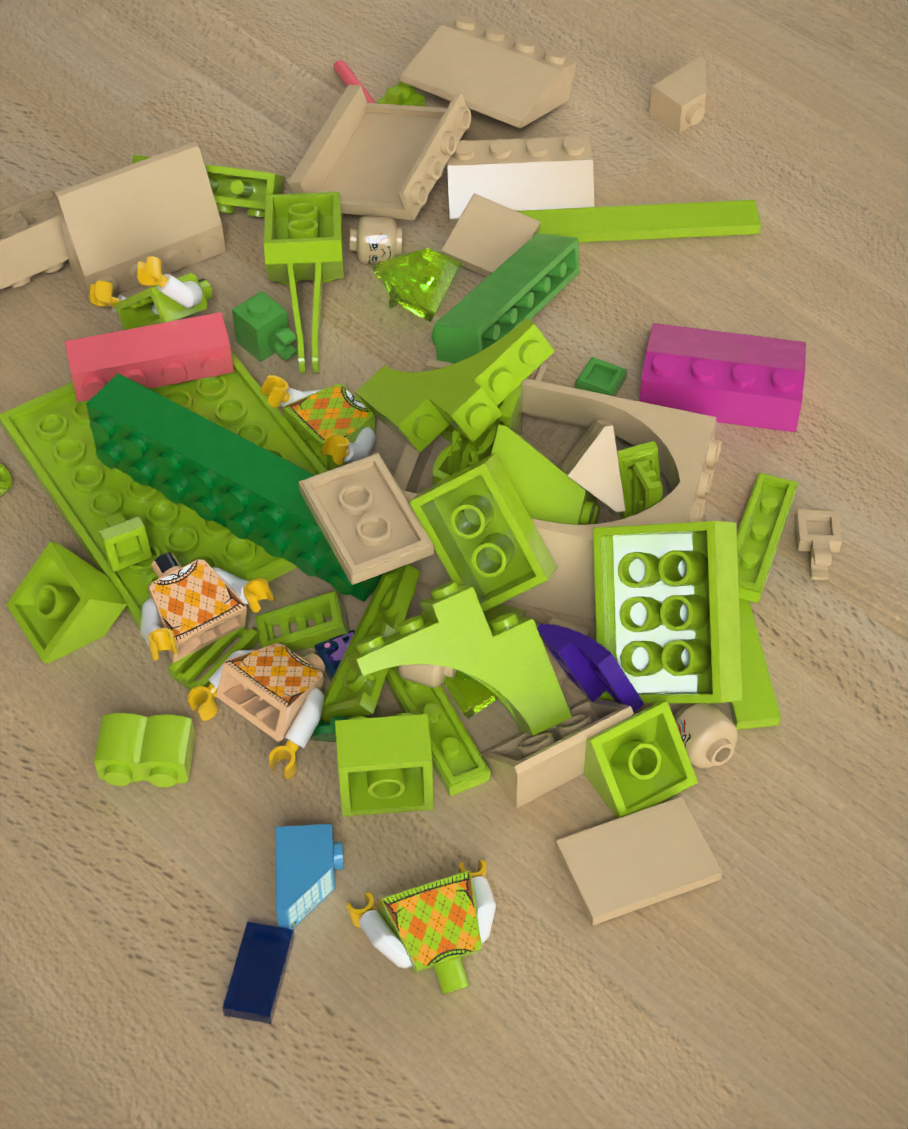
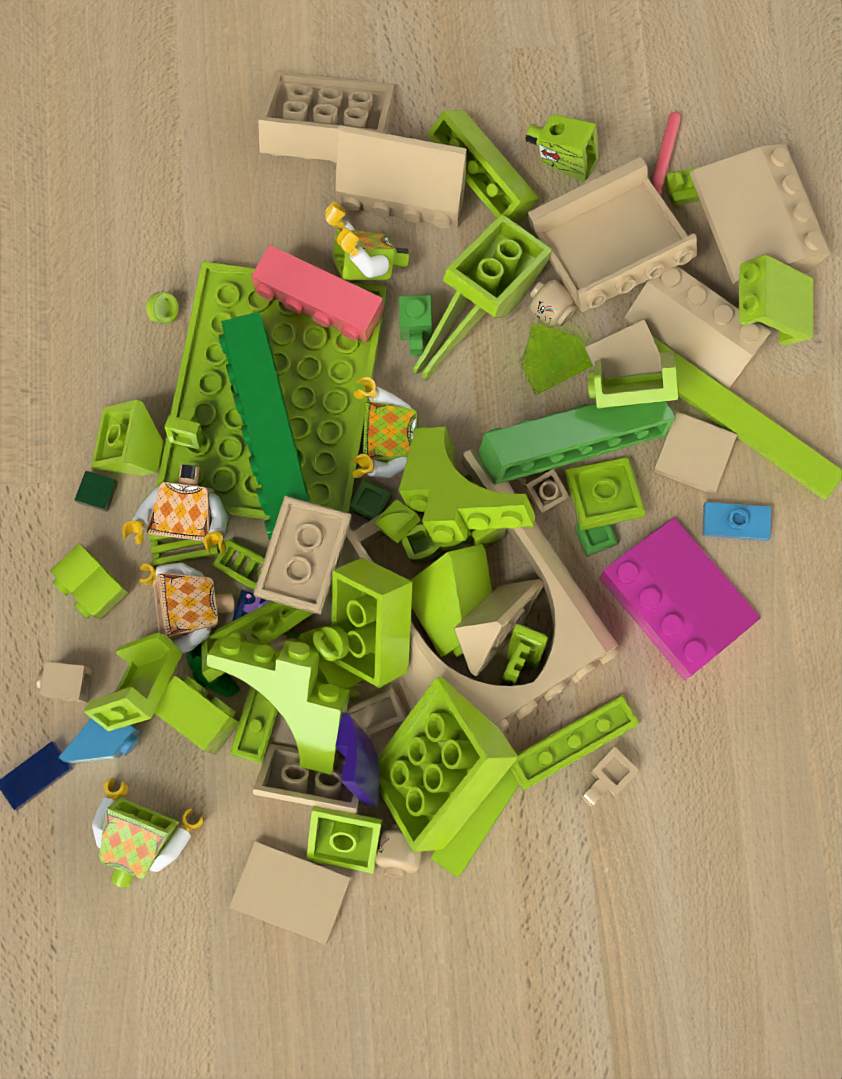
camera: 45 degrees right, 25 degrees up
(71, 675) = (96, 491): none -> dark green tile
(209, 853) = (64, 682): none -> tan brick
(268, 126) = (566, 145): none -> lime torso
(298, 766) = (148, 672): none -> lime panel
(417, 464) = (397, 521): none -> lime tile
(466, 572) = (331, 642): none -> lime tile
(539, 204) = (634, 388): none -> lime panel
(567, 109) = (777, 297): none -> lime panel
(581, 340) = (604, 493): none -> lime tile
(619, 269) = (695, 453): none -> tan tile
(707, 291) = (736, 521): none -> dark azure plate

